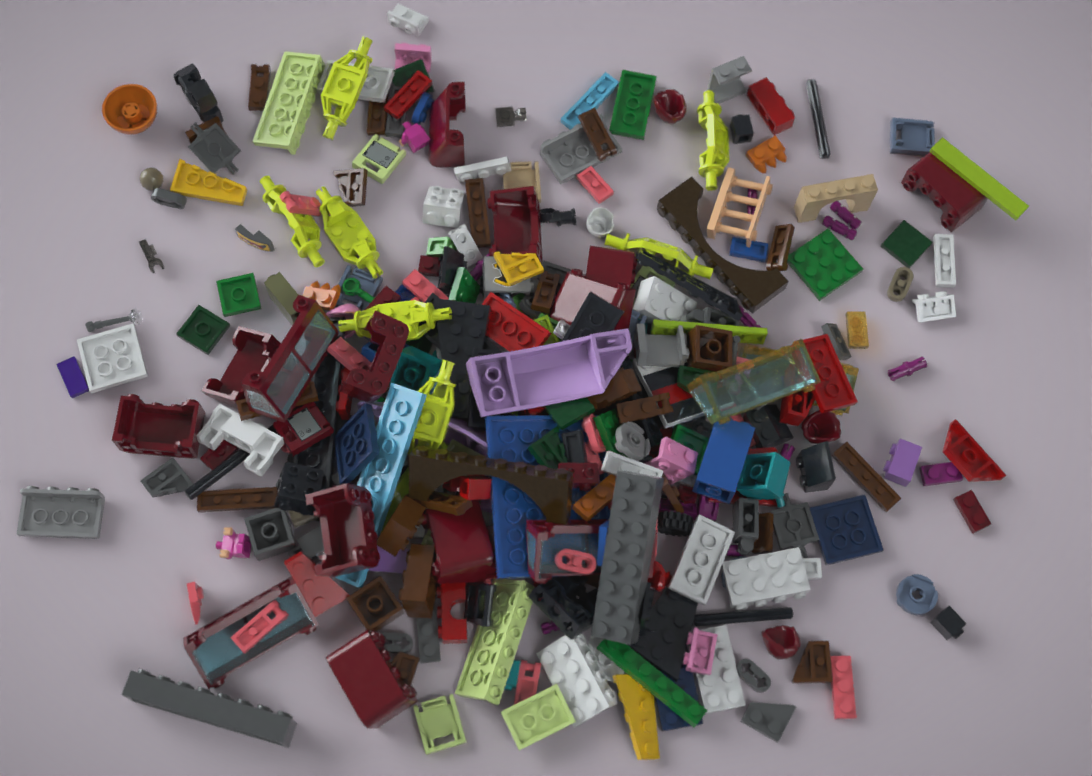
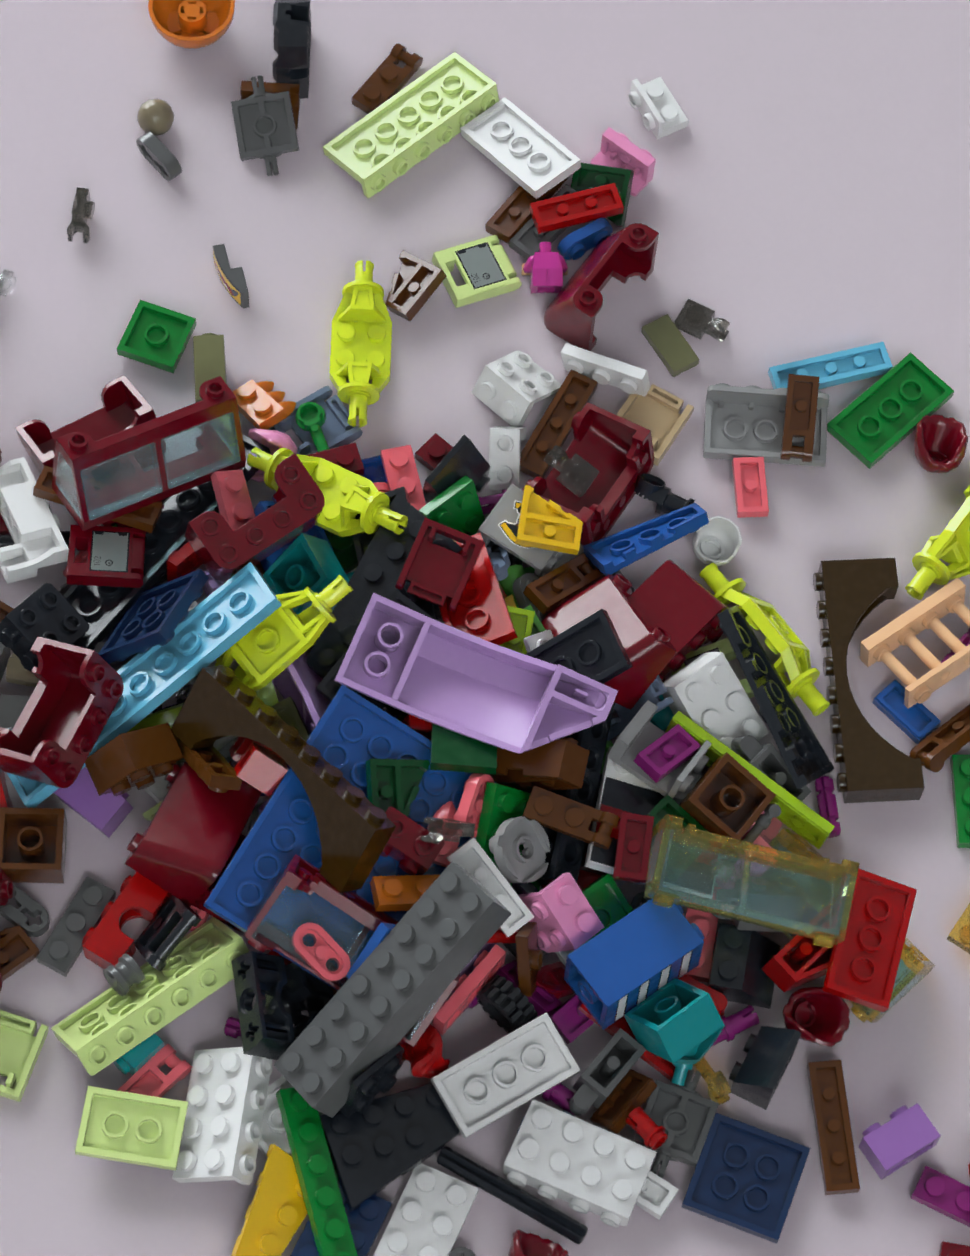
camera: 35 degrees right, 5 degrees down
(198, 183) = (215, 163): yellow wing -> none
(203, 329) = (79, 353): dark green tile -> none
(301, 204) = (320, 265): coral plate -> none
(303, 225) = (305, 284): neon yellow plate -> none
(344, 86) = (495, 144): neon yellow plate -> none
(419, 583) = (96, 857): reddish brown brick -> none
(436, 246) = (477, 434): bright green bracket -> none
(475, 640) = (124, 974): none -> dark grey wheel
(487, 325) = (436, 571): none -> dark red container
(503, 137) = (670, 345): none -> olive tile
(505, 230) = (574, 473): none -> clear smoke plate
(567, 244) = (643, 539): none -> blue wing
(574, 447) = (433, 800): black tile -> none
(594, 455) = (447, 830): none -> clear smoke plate
(665, 344) = (667, 753): none -> magenta plate
(685, 403) = (633, 847): none -> dark red plate
(701, 651) = (410, 1193): bright pink bracket -> none
(785, 538) = (653, 1135): none -> red pin
(800, 494) = (717, 1083): none -> clear yellow bar
(837, 340) = (933, 916): dark grey plate -> none

